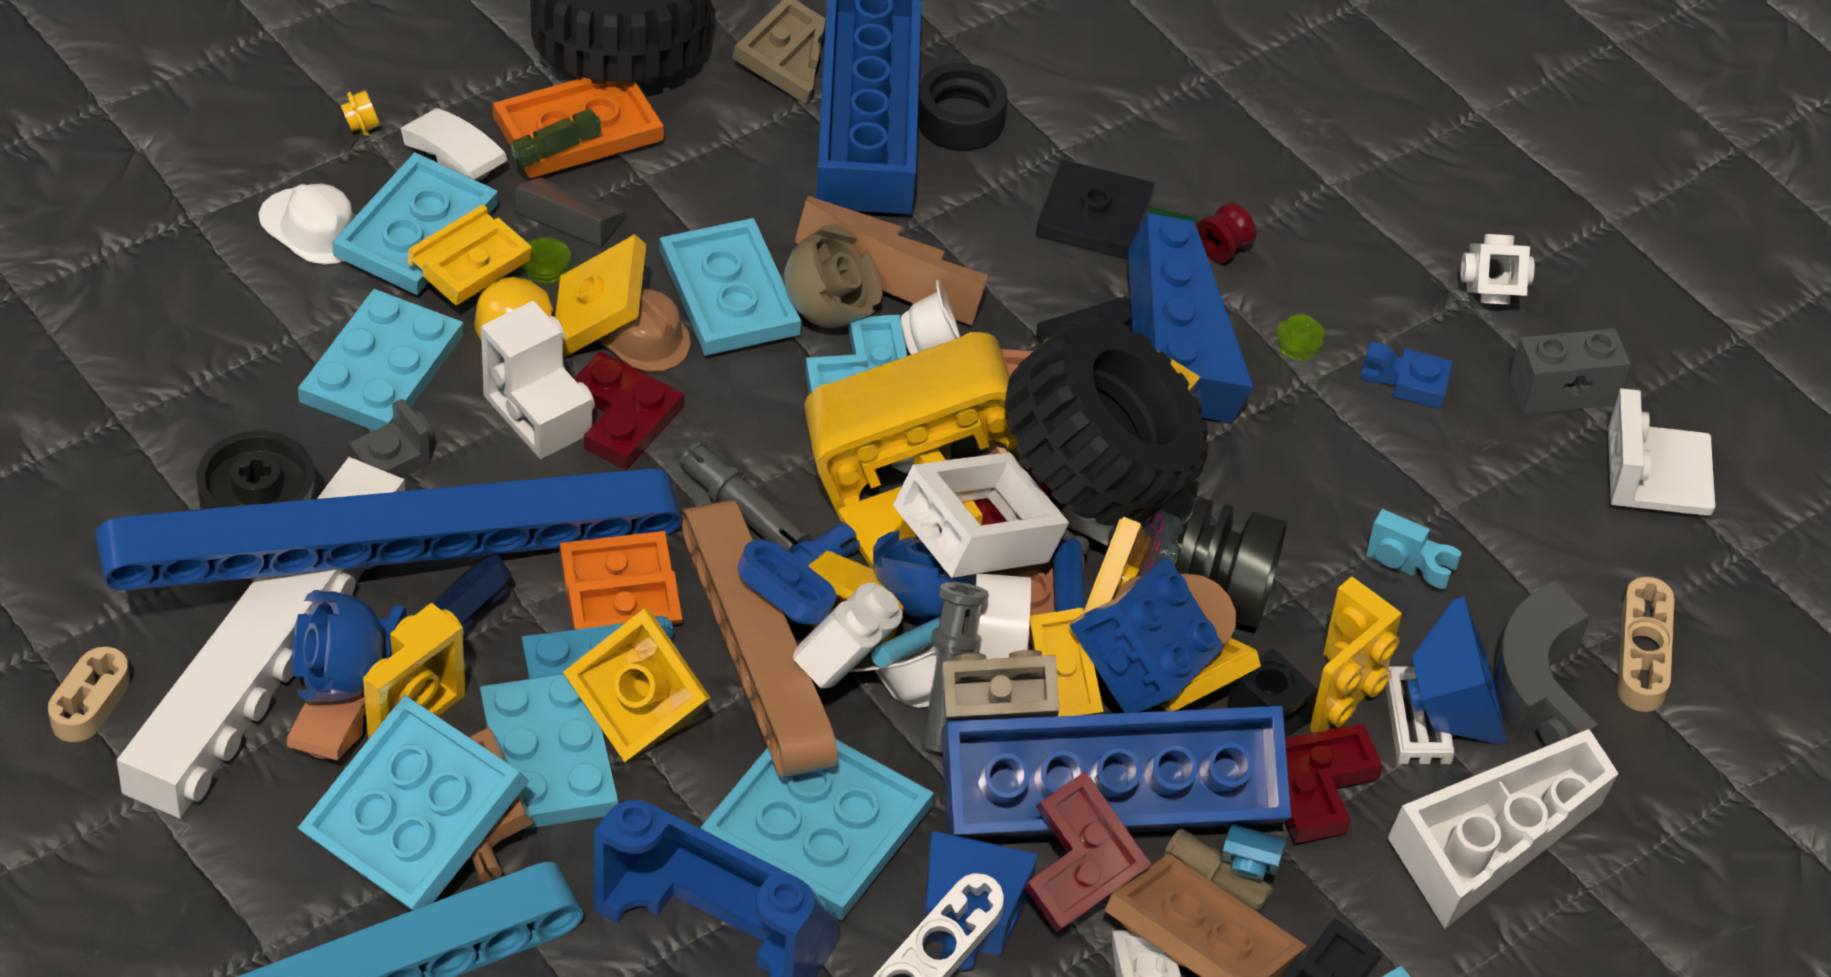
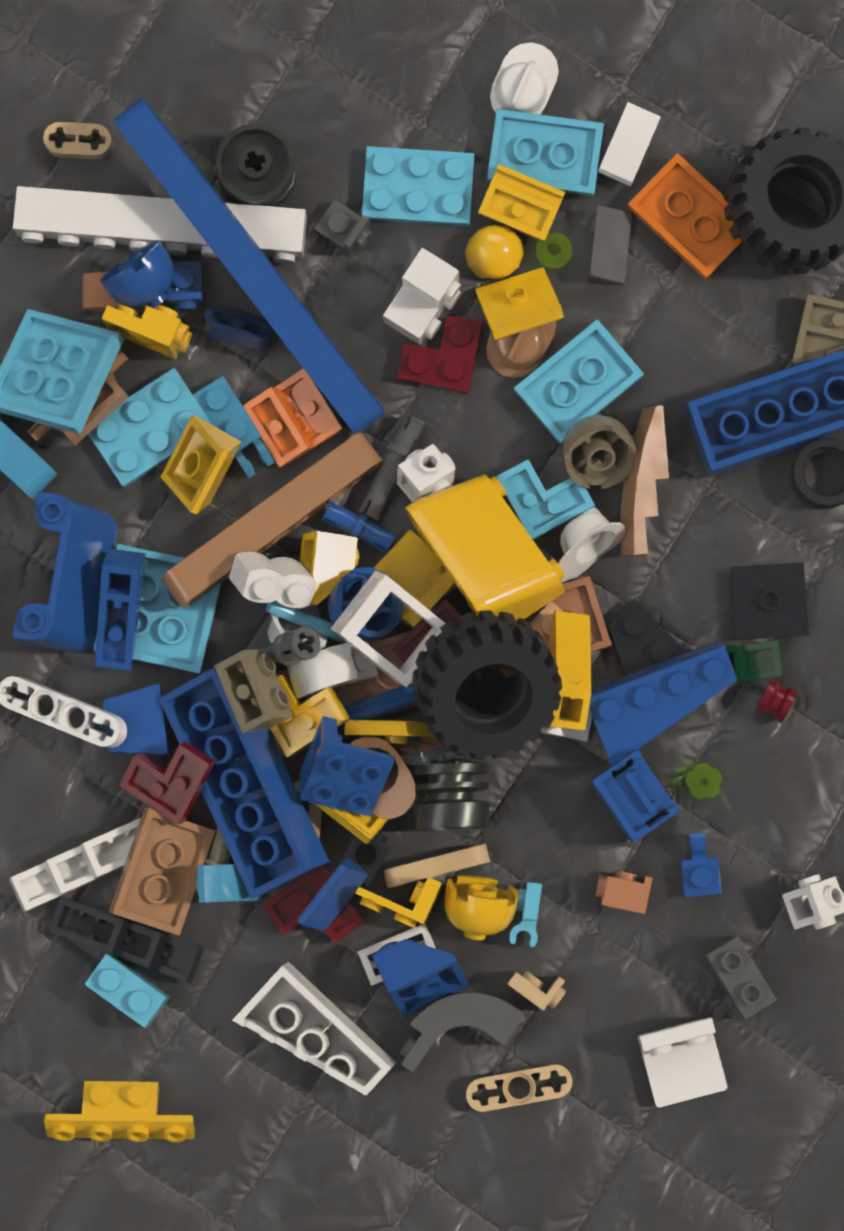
camera: 80 degrees right, 35 degrees up
(360, 112) = (635, 68): yellow plate -> none
(555, 138) = (653, 212): clear green axle -> none
(777, 458) = (425, 473): none -> white brick
(786, 582) = (301, 526): blue plate -> none
(799, 834) = (119, 608): none -> blue slope
(1302, 387) = (634, 797): none -> blue piece
(1313, 620) = (436, 866): none -> tan beam
(1313, 729) = (333, 895): none -> blue slope
(1400, 577) = (479, 906): none -> yellow cylinder
(1420, 446) = (624, 892): none -> nougat brick
(1519, 576) = (530, 988): none -> tan bracket

